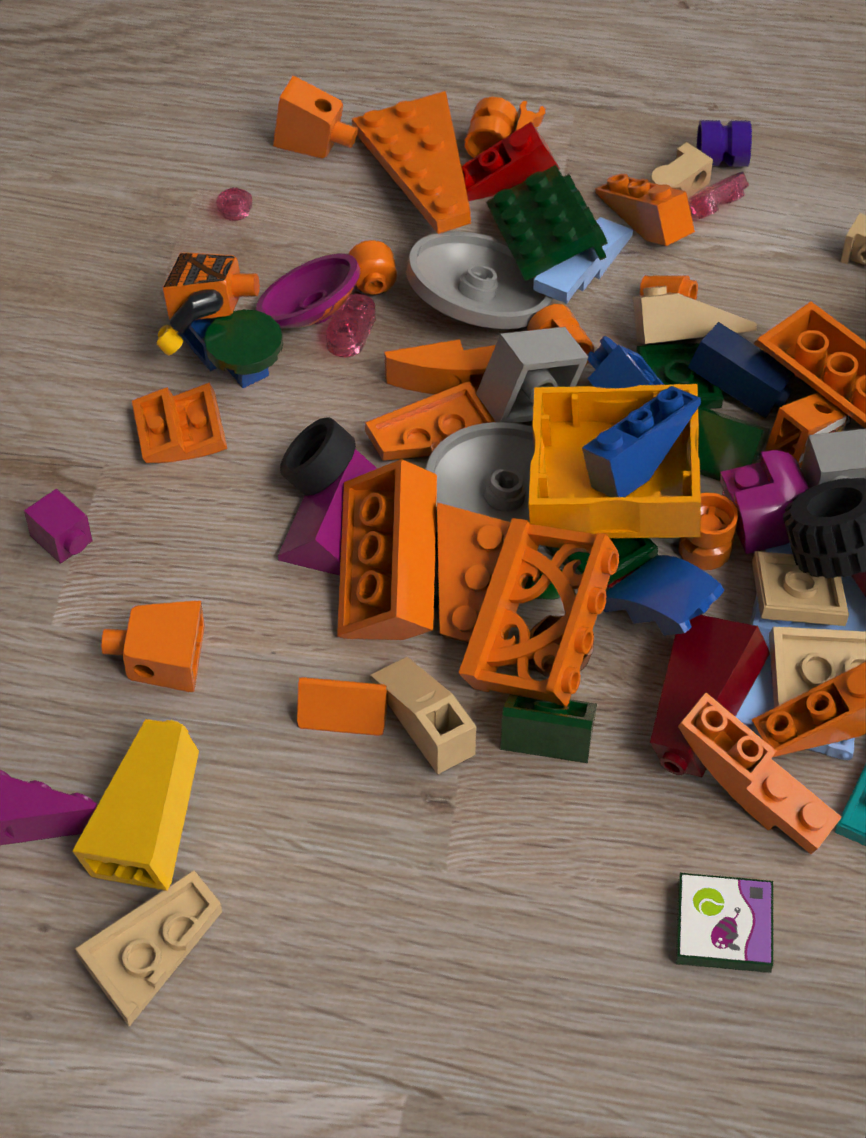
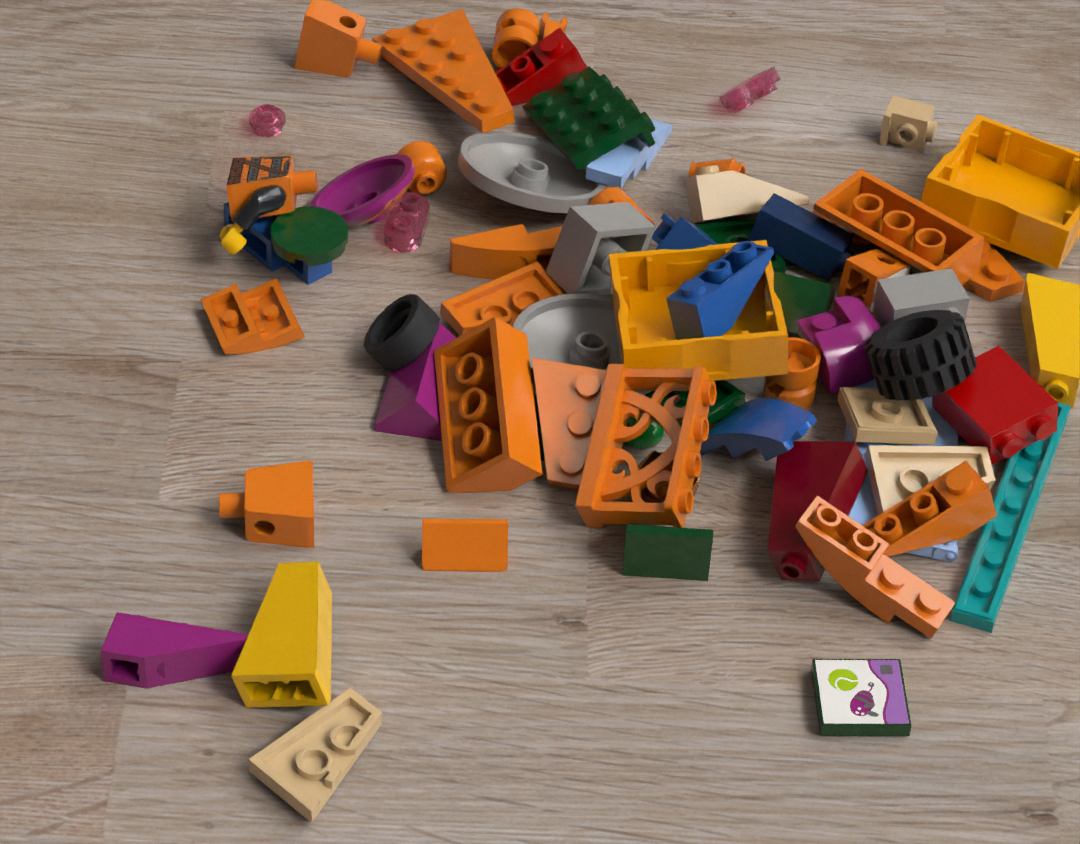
camera: 10 degrees left, 10 degrees down
(58, 526) = (151, 410): magenta brick -> none
(428, 714) = (554, 545): tan slope -> none
(651, 209) = (688, 105): orange slope -> none
(685, 170) = (711, 77): tan leg -> none
(726, 143) = (749, 42): dark purple wheel -> none

